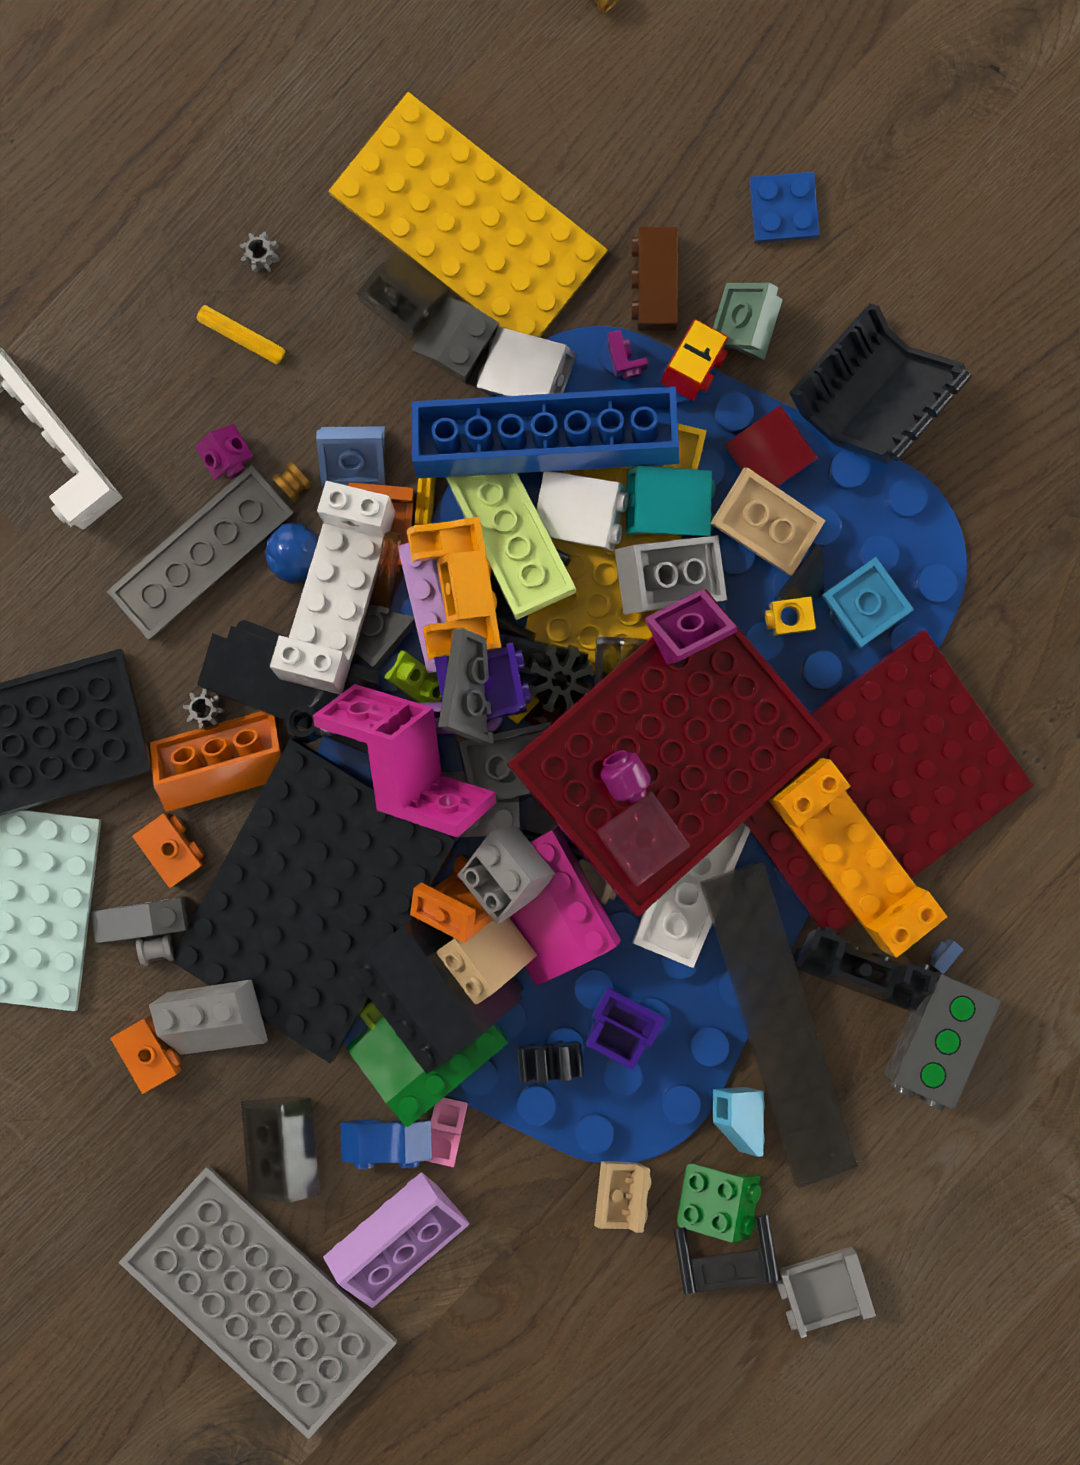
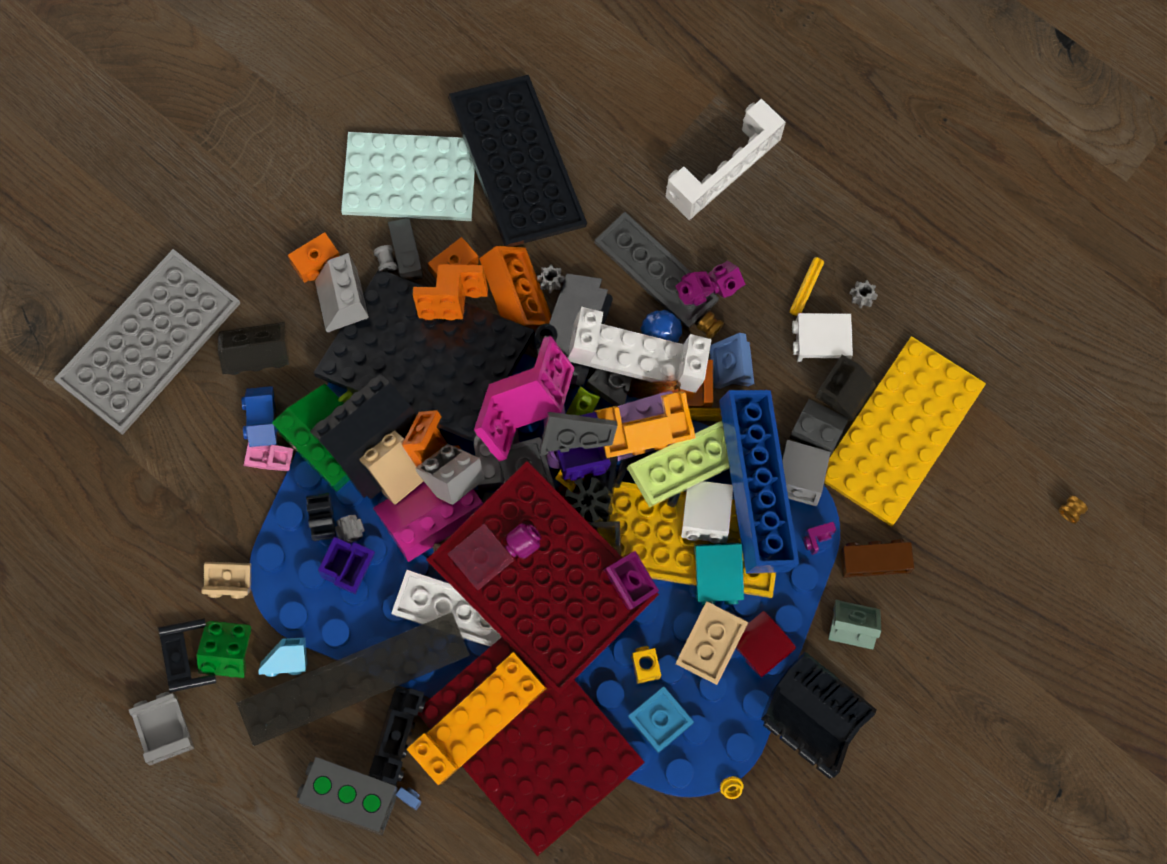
camera: 70 degrees right, 15 degrees down
(227, 858) = (448, 296): none -> orange bracket
(239, 497) = (695, 288): none -> magenta brick
(322, 319) = (822, 336): none -> white panel
(395, 1240) = (191, 428): lavender slope -> none
(567, 1021) = (349, 528): none -> light grey gear
(669, 571) = (672, 574): light grey slope -> none
(694, 360) = (821, 585): brick -> none
(784, 207) = (938, 646): blue plate -> none
(807, 579) = (673, 674): black slope -> none
(960, 513) = (731, 787): none -> yellow plate

